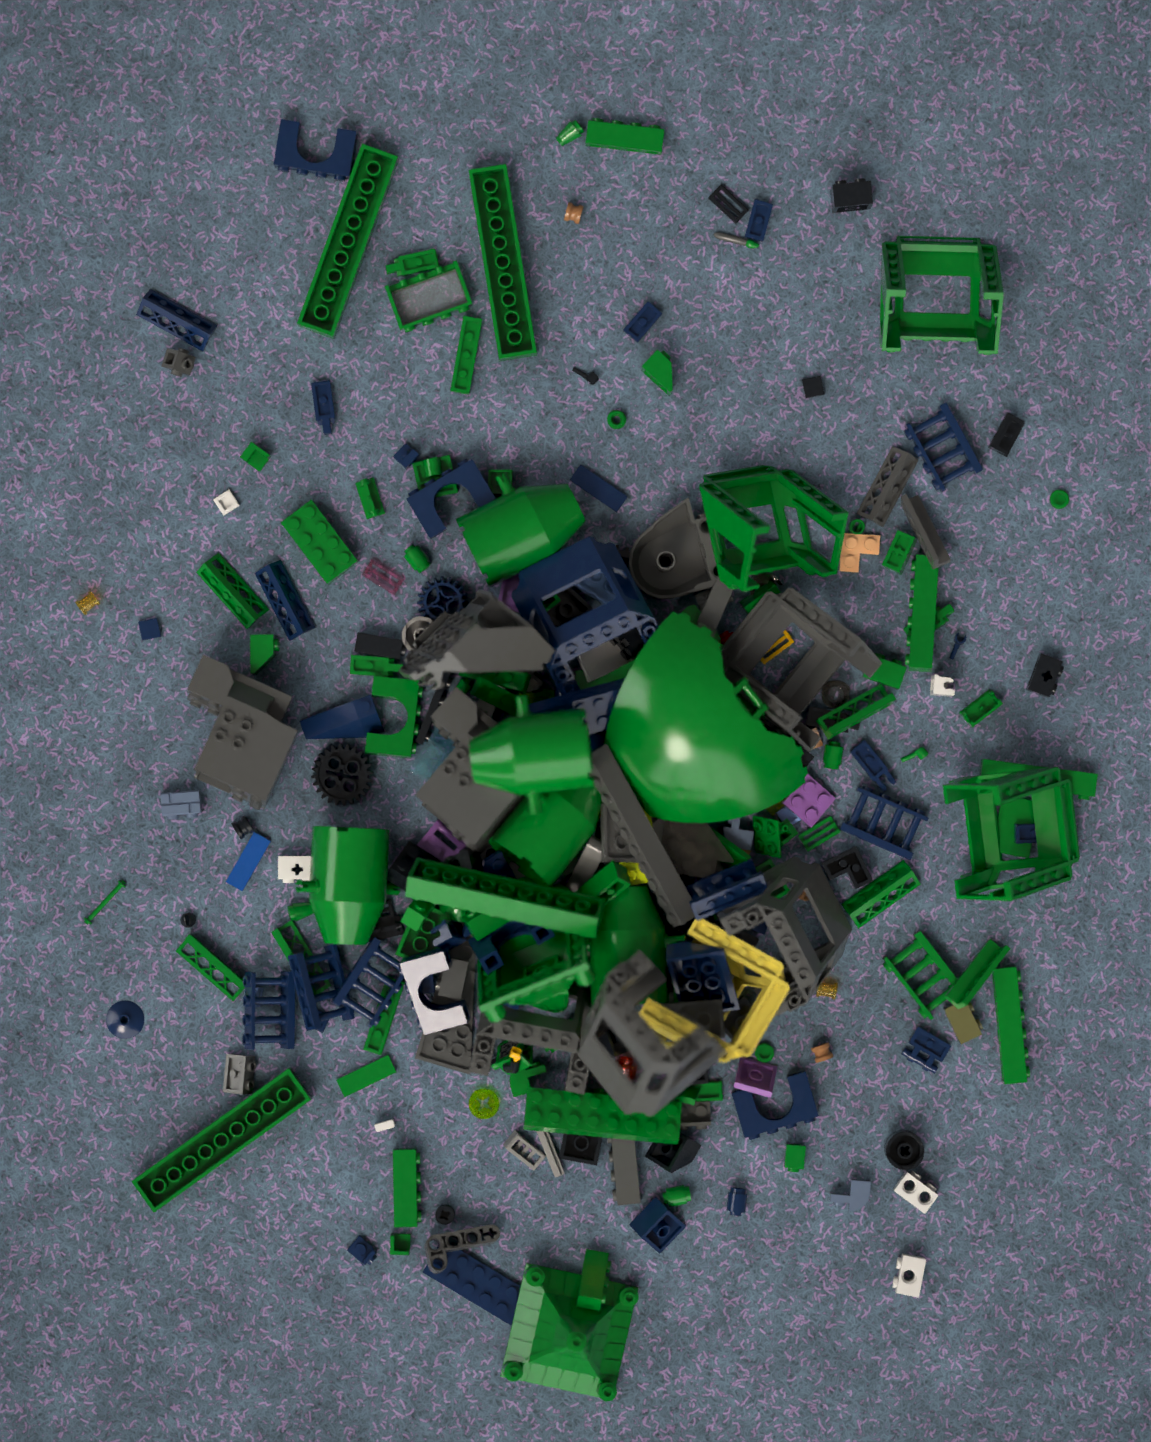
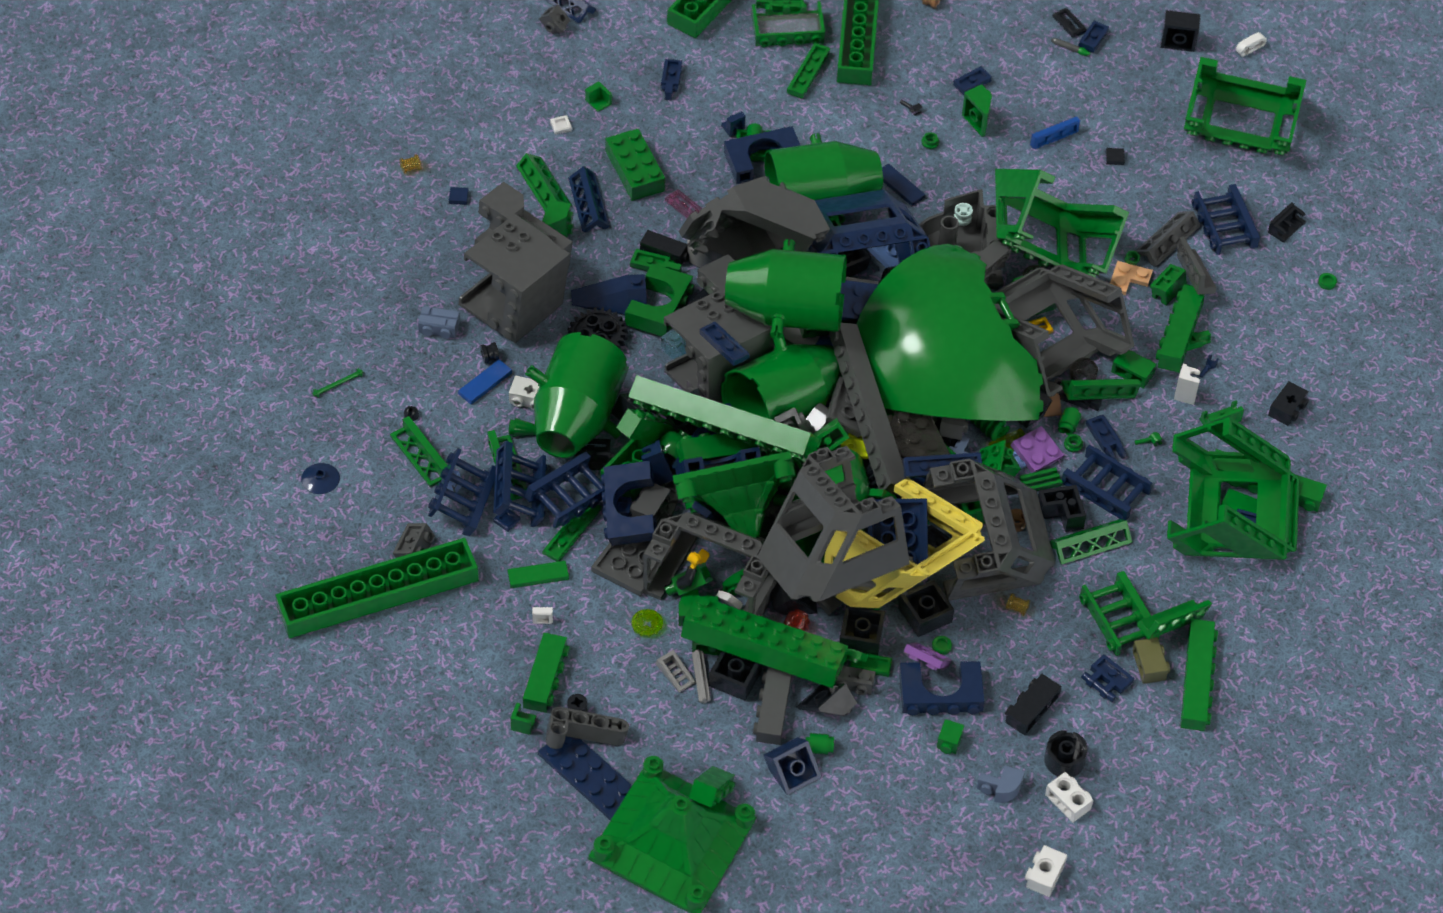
camera: 15 degrees right, 35 degrees down
(362, 1251) = (483, 720): dark blue bracket -> none
(370, 498) = (690, 146): green hinge -> none
(417, 558) = (717, 190): green brick -> none
(484, 821) = (724, 343): none -> dark blue tile
(555, 1062) = (729, 599): none -> white tile
(577, 874) = (794, 419): none -> dark grey bracket
(676, 530) = (963, 213): none -> light aqua wheel
(676, 935) = (880, 494): none -> green tile
(736, 1201) = (880, 762): dark blue brick -> none
(748, 372) = (1055, 132): none -> blue tile
(822, 1052) = (1000, 654): medium nougat wheel -> none
(846, 775) = (1073, 438): none -> green plate
(862, 1099) = (1032, 704): none -> black brick
(929, 186) = (1251, 44): none -> white beam

